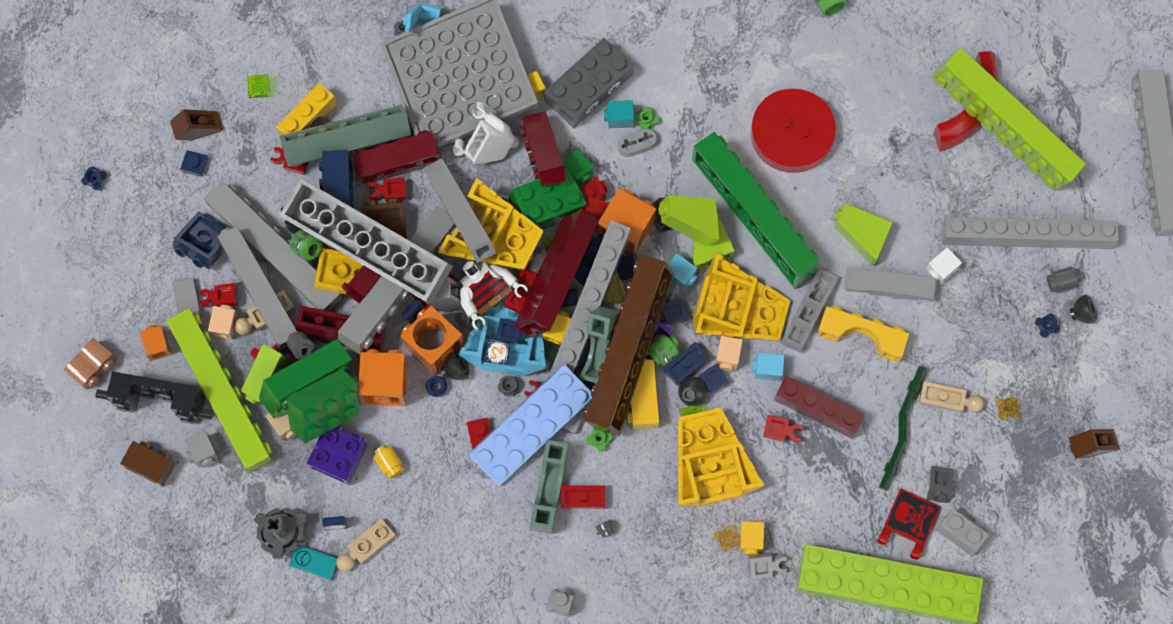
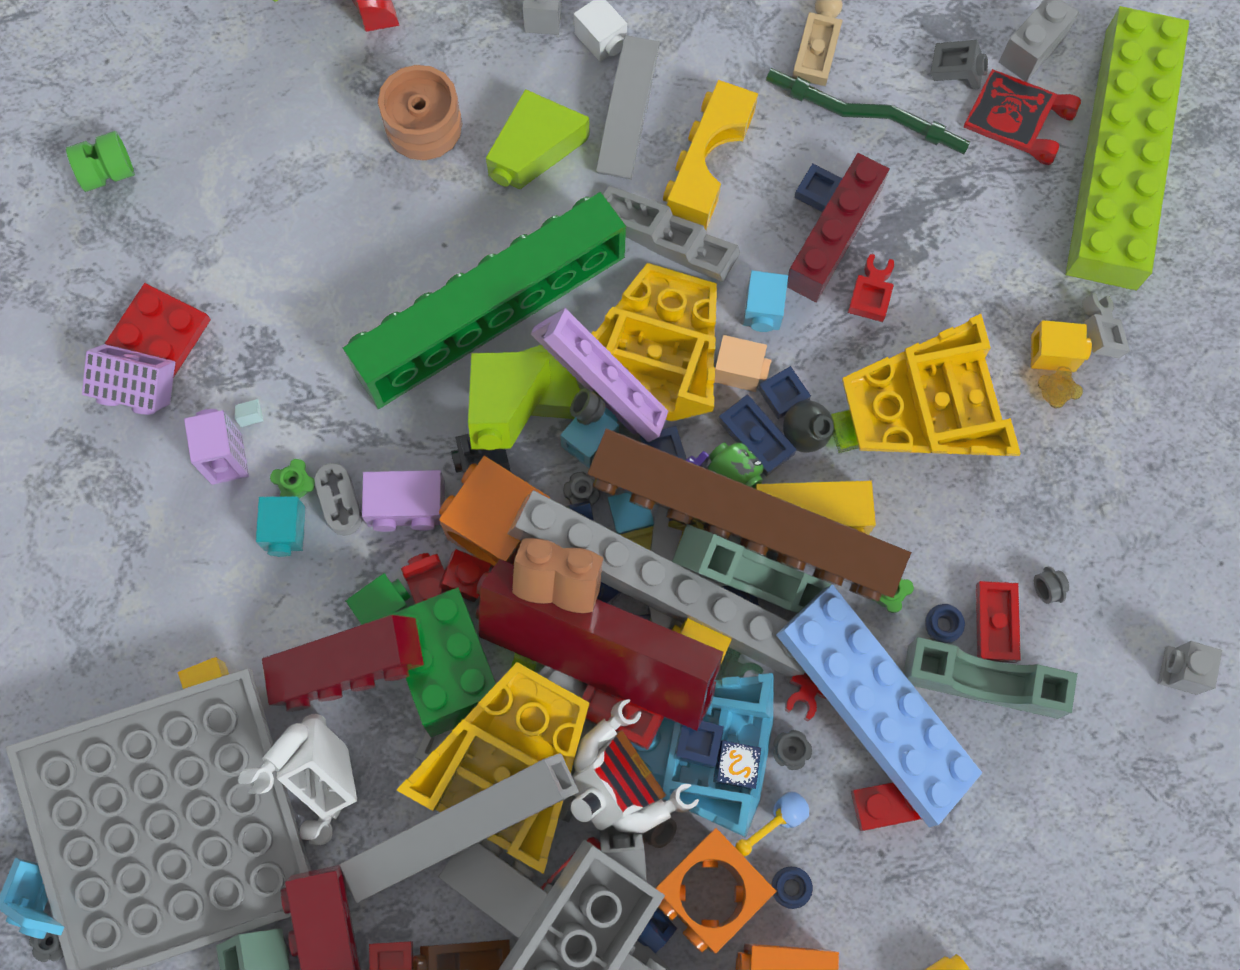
camera: 90 degrees left, 0 degrees up
(455, 367) = (766, 851): pearl dark grey brick -> none
(474, 382) = (788, 812): none -> hinge
(581, 462) = (954, 617): none -> dark blue plate
(587, 243) = (557, 575): none -> nougat brick
(588, 83) = (212, 578): dark grey brick -> none
(637, 174) = (402, 499): none -> lavender brick
(659, 75) = (216, 446): none -> lavender brick
(685, 91) = (248, 413): none -> light aqua piece
(691, 264) = (587, 406): none -> dark grey plate
(697, 27) = (128, 379): none -> lavender brick
(706, 269) = (600, 371): none -> lavender fence
(729, 40) = (159, 326): none -> red plate
(793, 130) = (341, 237): red brick -> none
(847, 395) = (817, 187): none -> dark blue plate
(873, 165) = (420, 112): none -> nougat wheel

